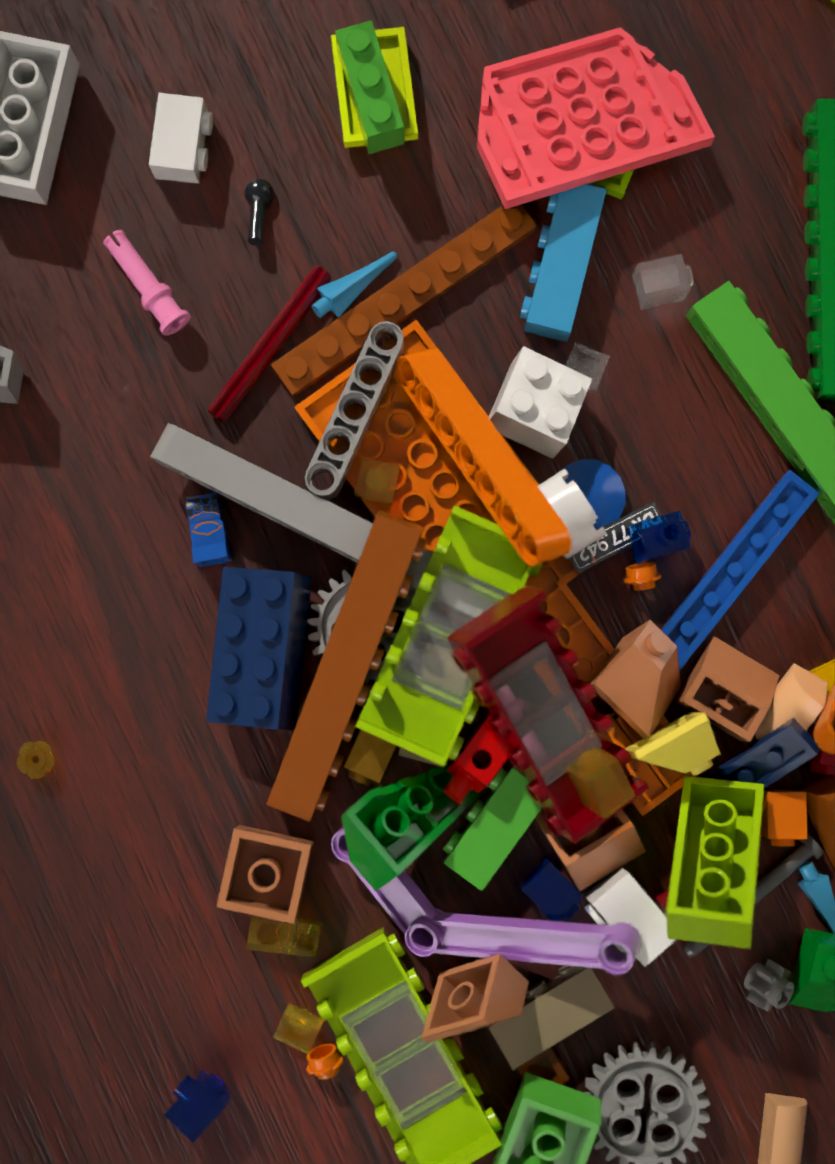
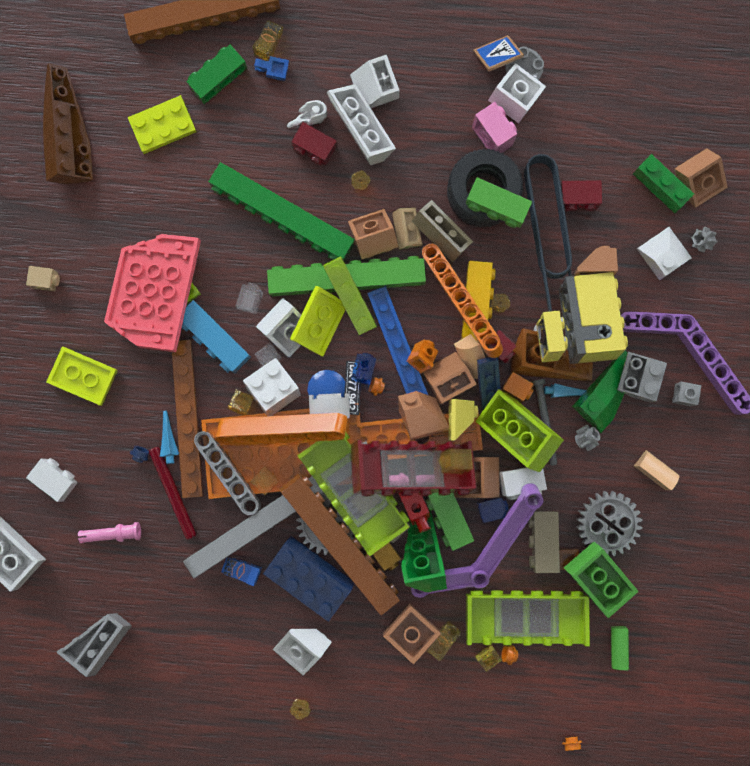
camera: 55 degrees left, 0 degrees up
(138, 704) = (302, 648): none -> white slope
(197, 1103) = (495, 722): clear blue brick -> none
(259, 195) = (100, 457): black bar -> none
(301, 253) = (139, 454): none -> dark blue plate
(370, 87) = (82, 379): bright green brick -> none
(474, 997) = (518, 571): nougat slope -> none
(482, 366) = (240, 402): none -> clear yellow plate
(650, 368) = (279, 326): none -> white slope
(695, 416) = (318, 321): none -> neon yellow plate
(750, 623) = (424, 352): none -> orange brick
(769, 441) = (350, 295): none -> lime plate

